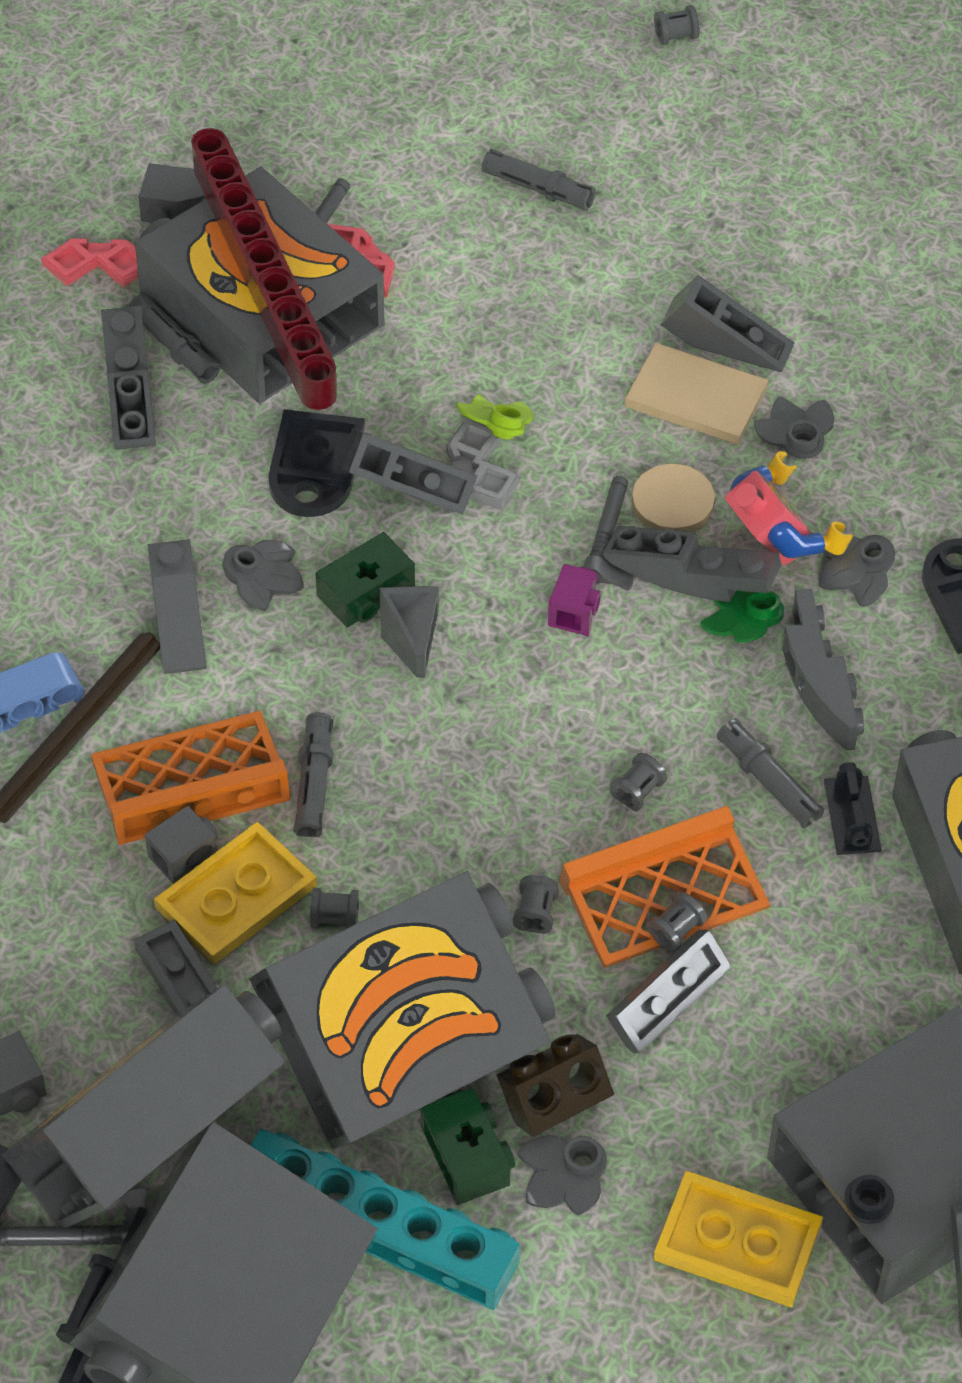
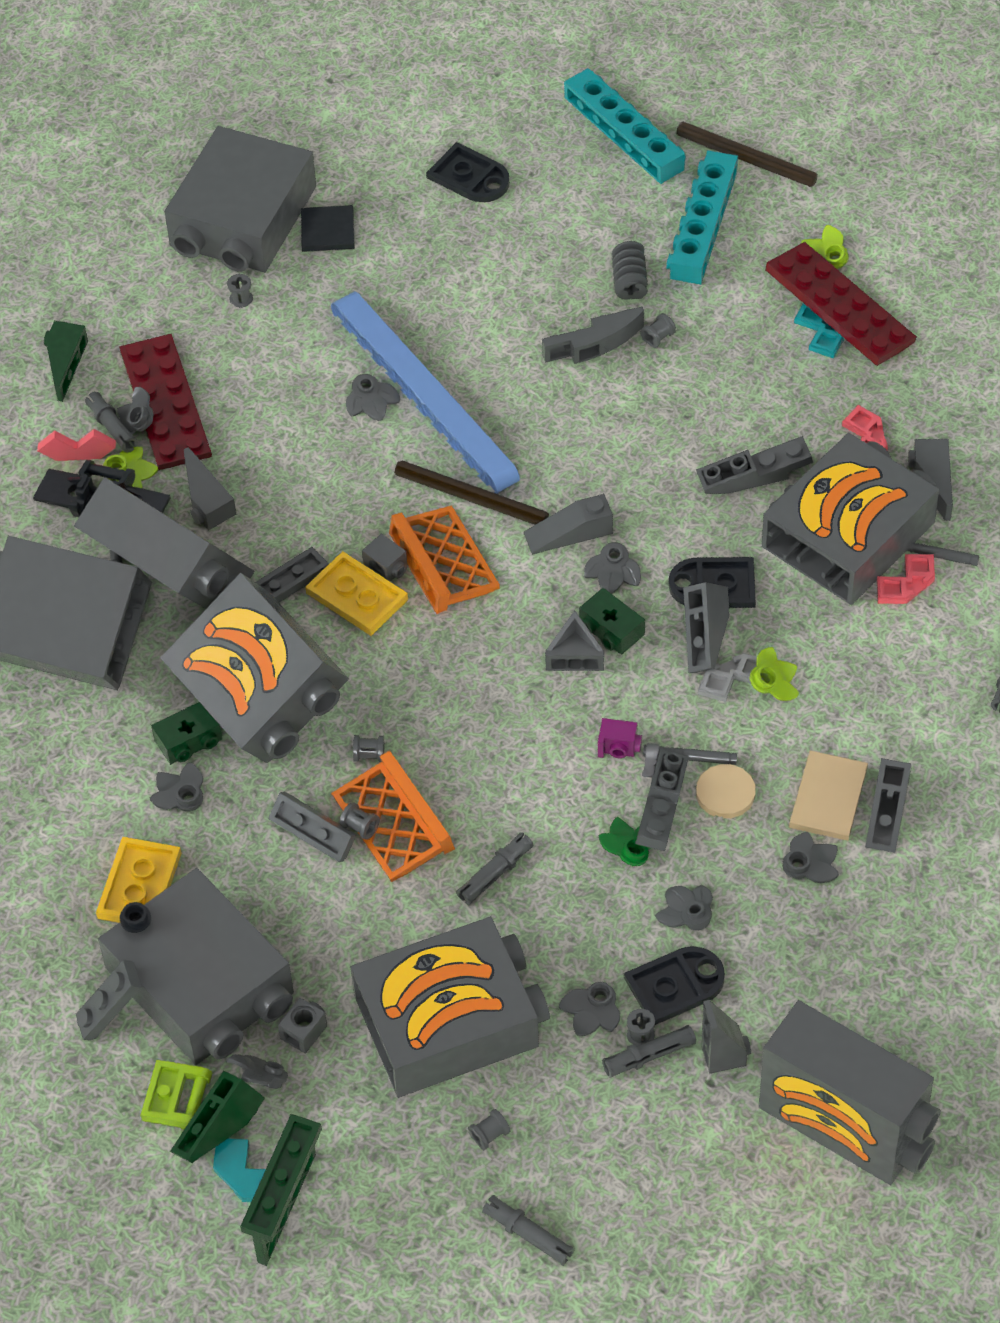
camera: 85 degrees right, 0 degrees up
(264, 269) = (831, 498): dark red beam -> none
(315, 760) = (452, 619): dark grey pin -> none
(334, 908) = (350, 643): dark grey bush -> none
(434, 1258) = (133, 681): teal brick -> none
(557, 1094) = (230, 769): dark brown brick -> none
(638, 781) = (473, 793): dark grey bush -> none
(773, 518) = (709, 839): torso -> none
(818, 676) = (571, 889): dark grey slope -> none
(852, 811) = (461, 917): black hinge -> none

